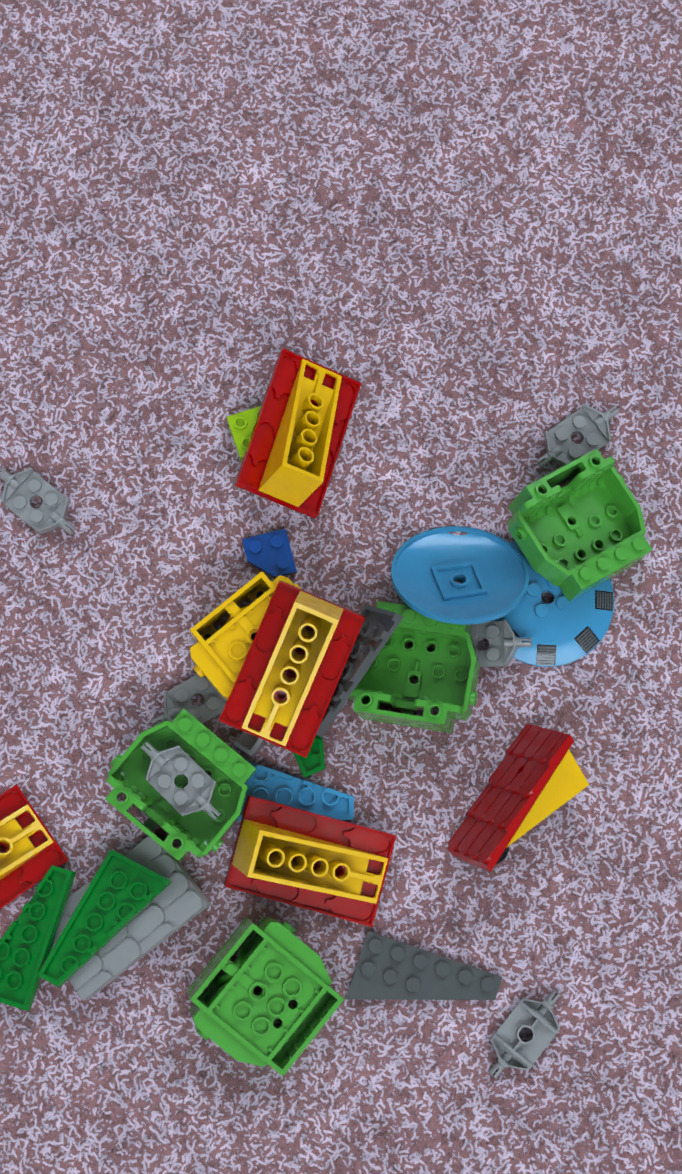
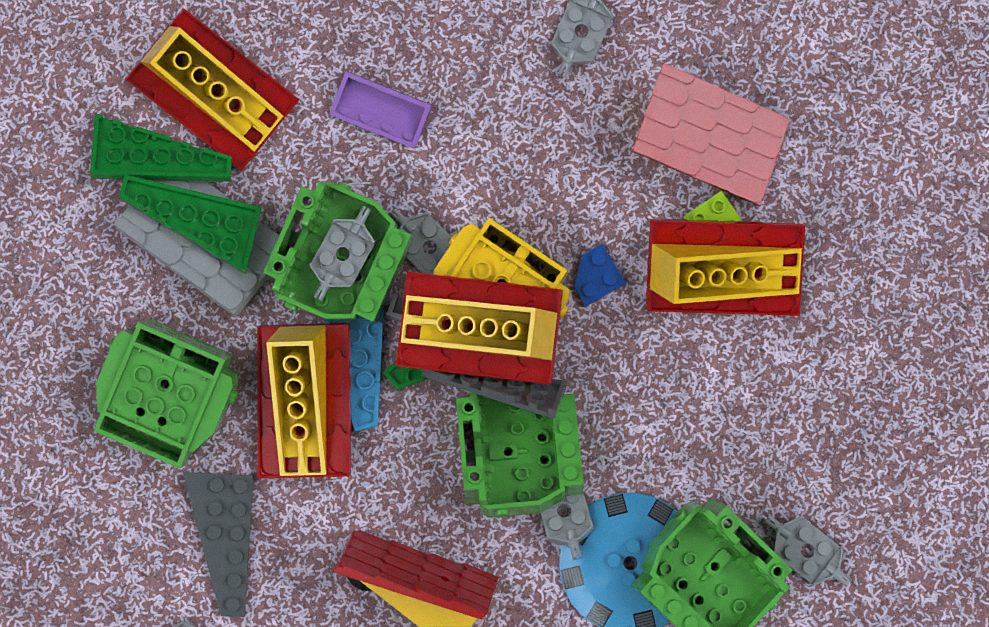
camera: 75 degrees right, 5 degrees up
(51, 709) = (380, 109): none -> medium lavender slope
(170, 411) = (711, 134): none -> piece
(488, 567) = (640, 443): dark azure dish -> none

